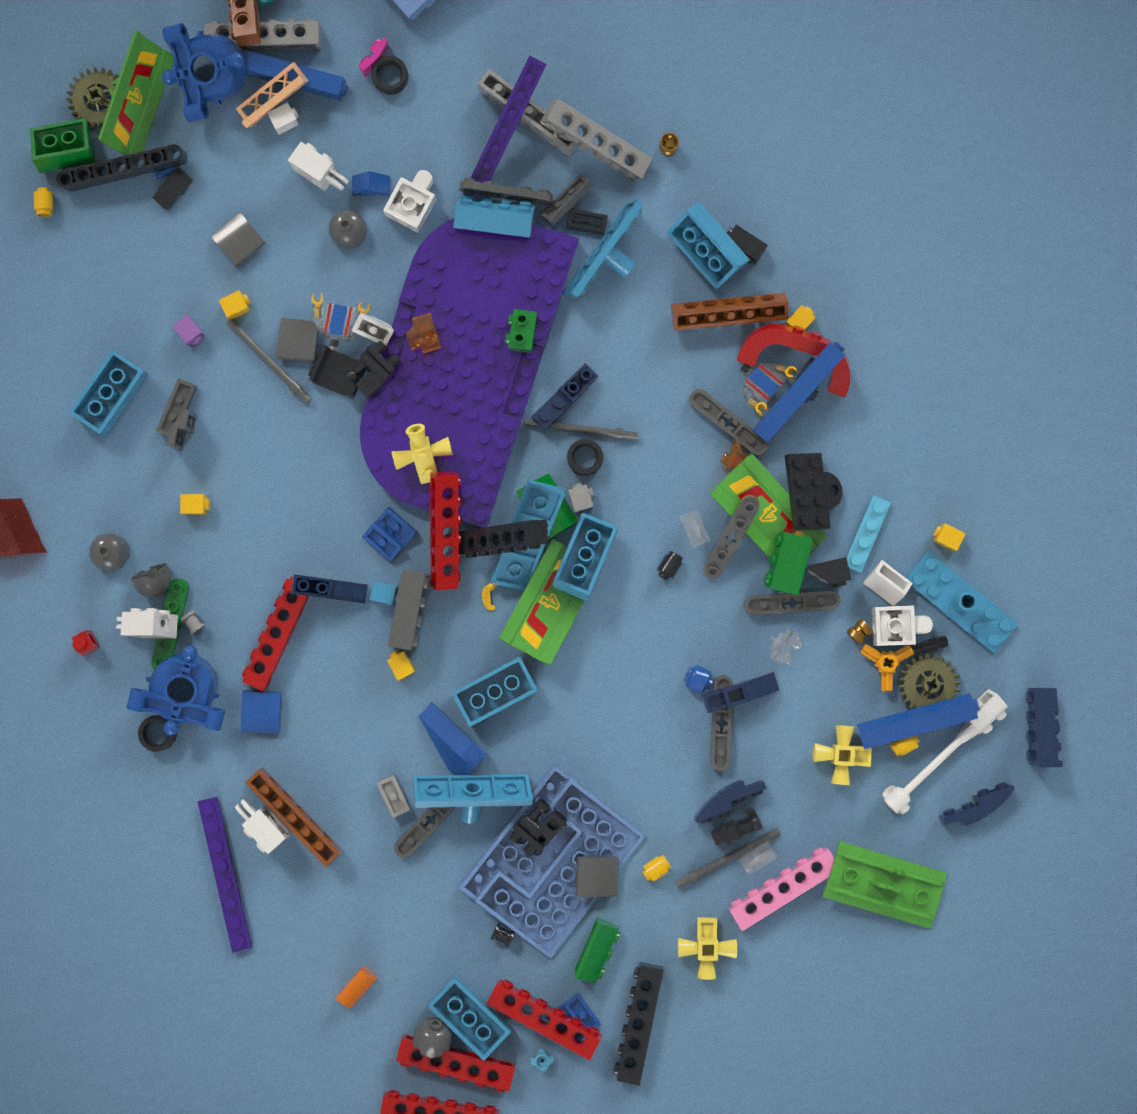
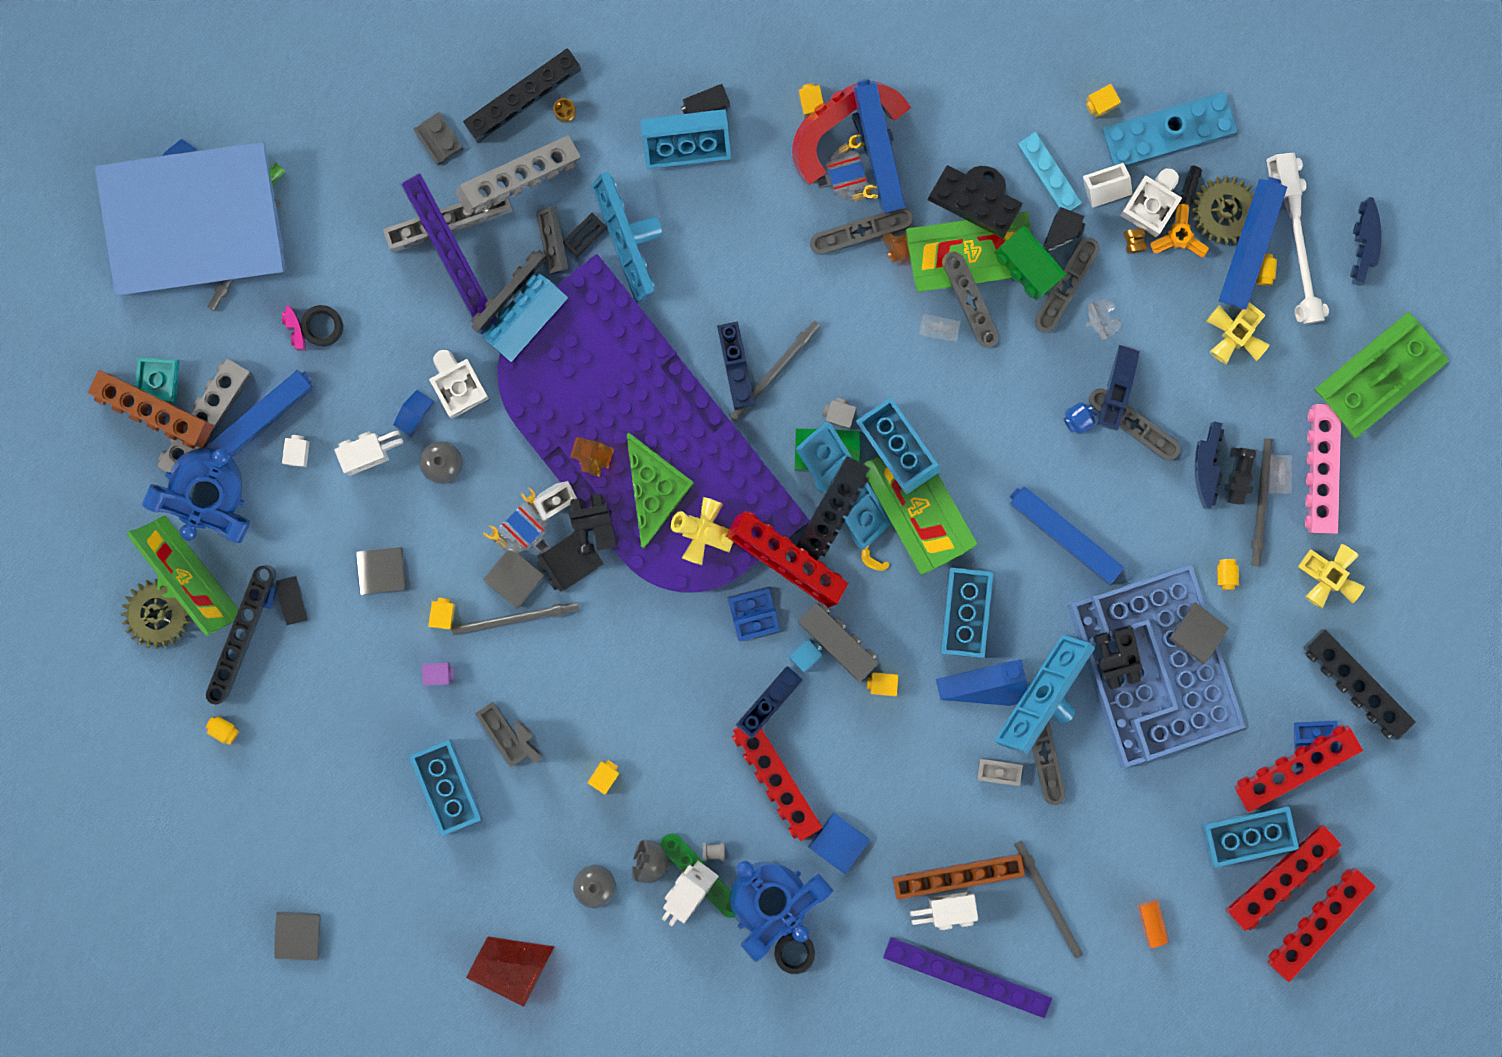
camera: 60 degrees left, 0 degrees up
(62, 145) = (180, 676): green slope -> none
(85, 642) = (665, 965): red brick -> none
(273, 101) = (276, 445): light nougat fence -> none
(340, 862) = (1028, 862): none -> dark grey bar
(432, 1037) = (1245, 882): dark grey cylinder -> none
(433, 398) = (656, 488): none -> bright green tile
(502, 935) = (1195, 756): black bush -> none
(522, 330) = (649, 363): green brick -> none
(548, 1059) = (1339, 800): medium azure plate -> none
(585, 66) = (438, 138): none -> dark grey plate
(585, 471) = (808, 369): black tyre -> none
(596, 951) = (1266, 679): green slope -> none
(604, 727) = (1065, 535): none -> blue brick
(658, 105) = (522, 95): none -> black brick
(669, 565) = (957, 374): black brick -> none
(729, 311) = (759, 160): dark orange brick -> none
(1043, 728) = (1335, 133): dark blue wedge -> none

